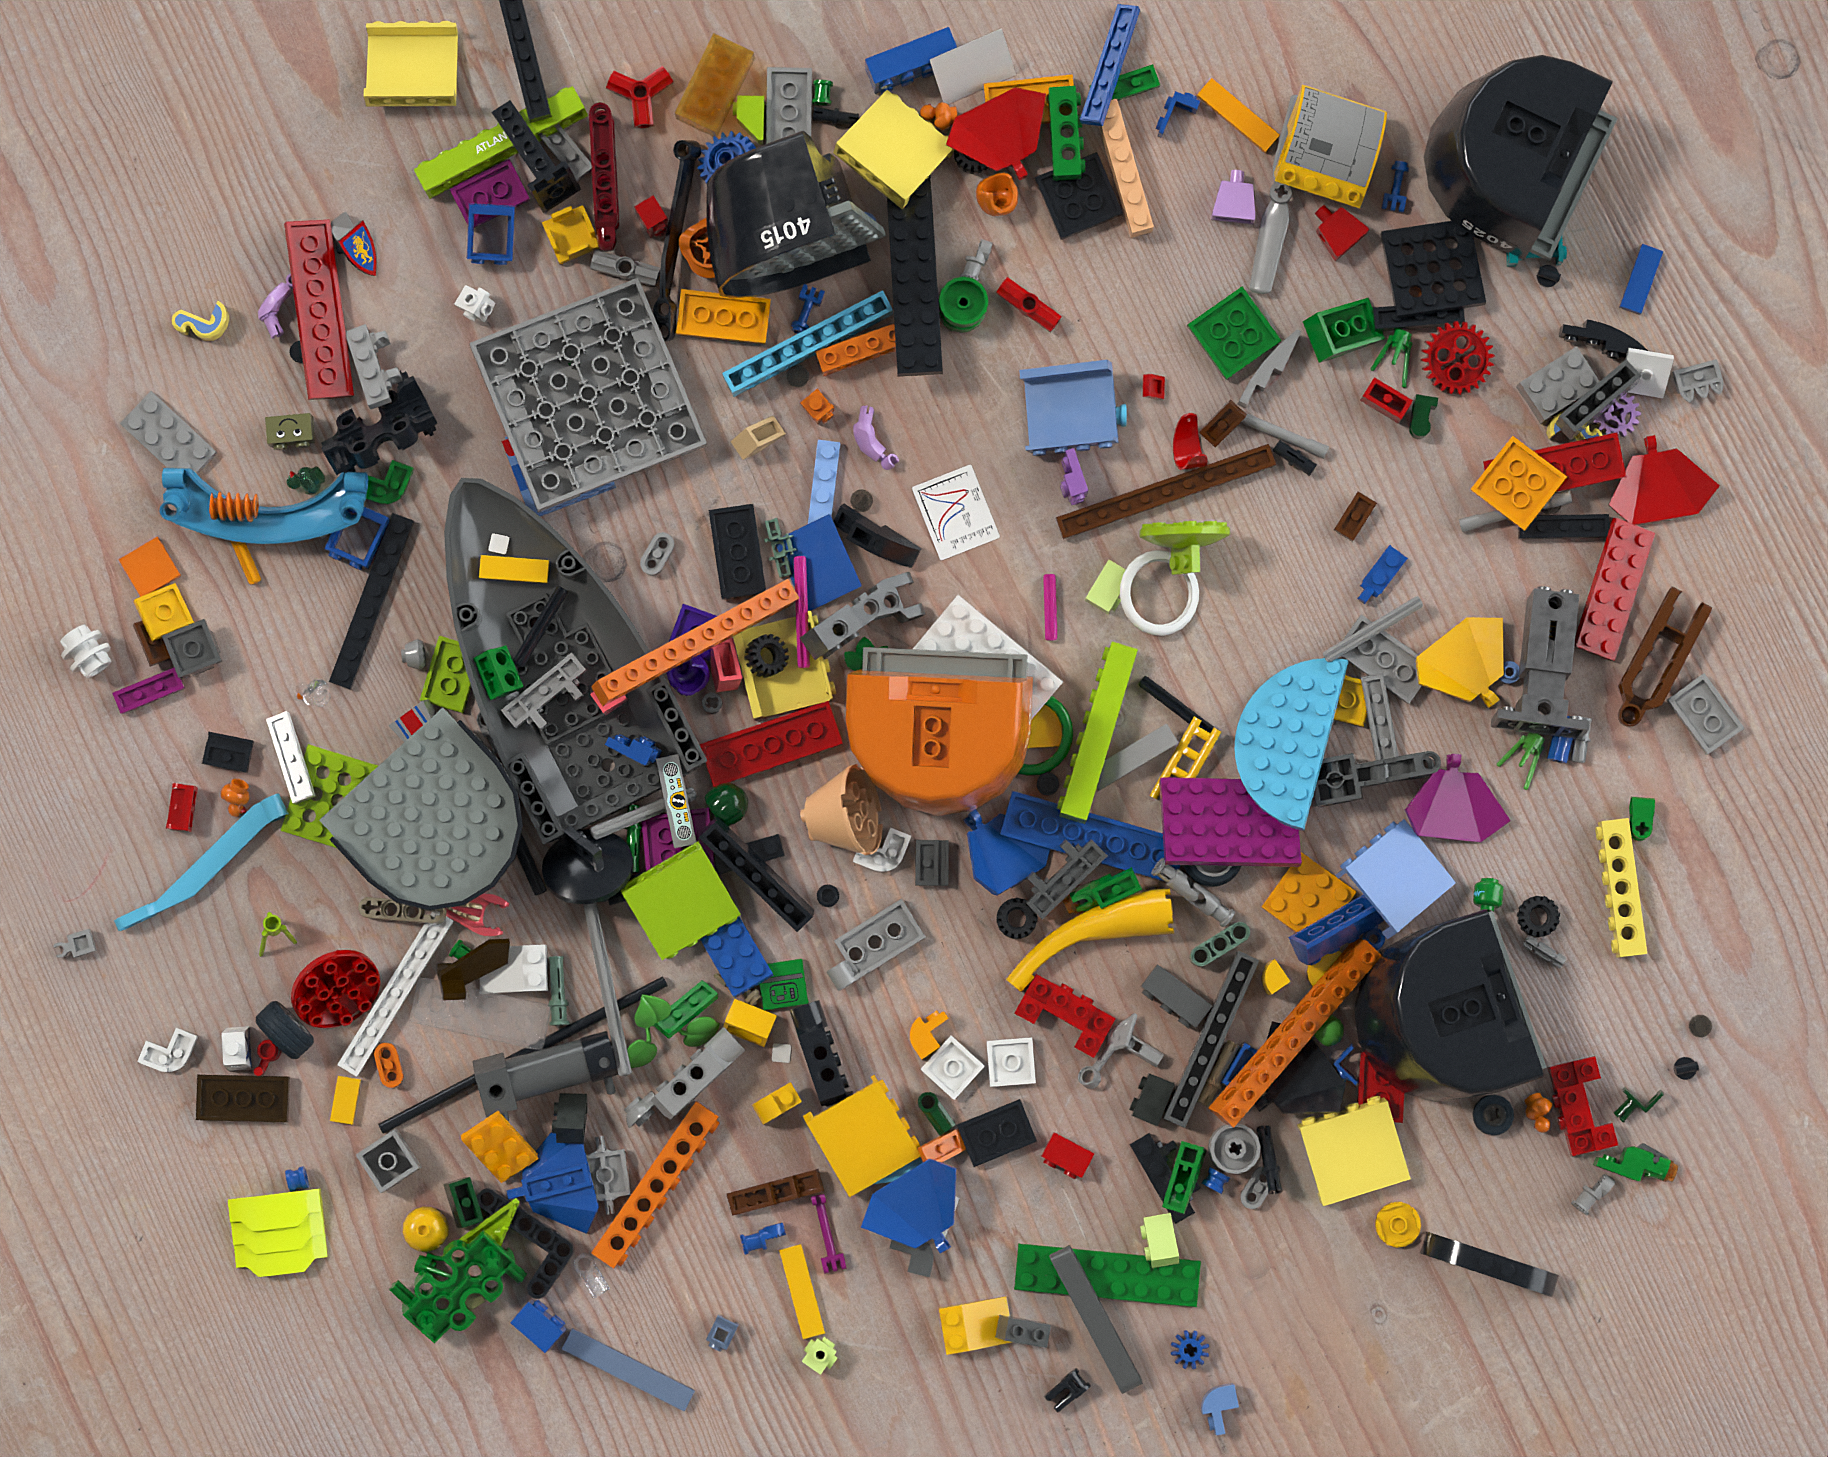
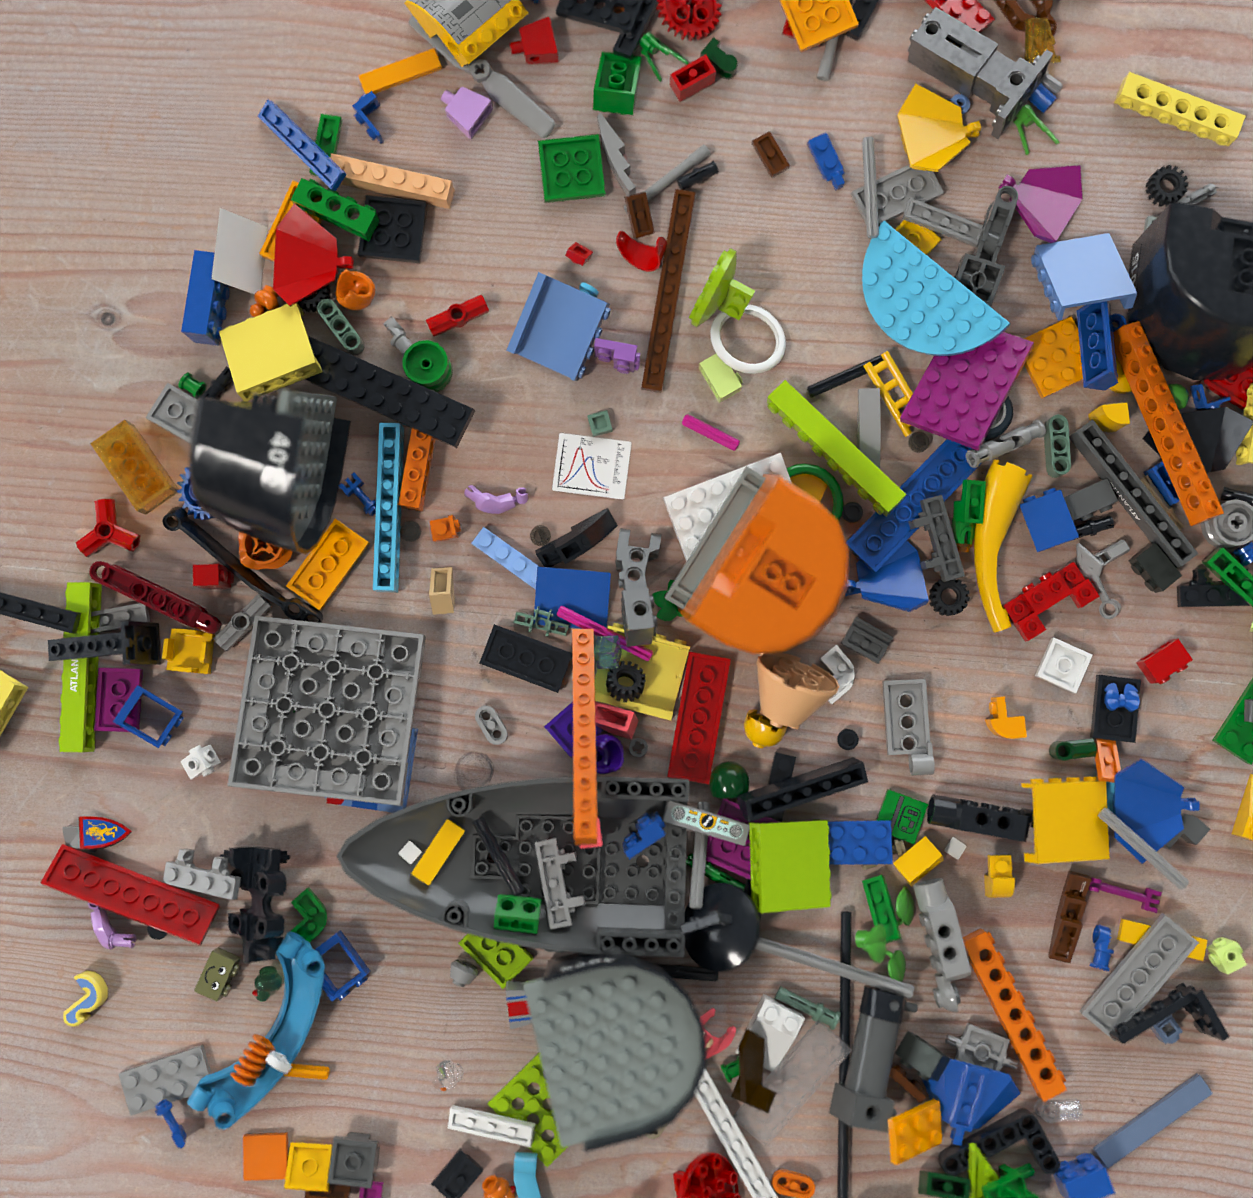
camera: 55 degrees left, 0 degrees up
(145, 449) = (178, 1132): none -> blue hinge
(246, 530) = (278, 1061): none -> white tile
(371, 601) = (399, 984): black plate -> none
(537, 1127) = (912, 1087): none -> reddish brown plate
(751, 115) = (173, 451): lime slope -> none
(754, 1284) = (1139, 975): none -> light grey plate
(756, 1348) = (1193, 1001): none -> black bracket
(784, 623) = (607, 652): none -> clear light blue brick
(789, 807) = (761, 732): none -> yellow cylinder
(875, 1218) = (1143, 848): none -> light grey axle
(952, 1067) = (1043, 715): white plate -> none
(963, 192) = (336, 318): none -> sand green beam
(1000, 497) = (600, 423): none -> sand green tile
(1003, 1124) = (1128, 699): none -> blue piece
(1140, 971) = (1048, 519): none -> blue panel
(1150, 810) = (918, 442): none -> clear smoke plate
(1159, 1019) = (1093, 527): none -> black pin
(1488, 894) = (1129, 214): green head -> none
(1608, 715) = (1038, 39): none -> clear yellow wing
(1641, 813) = (1128, 61): green piece -> none

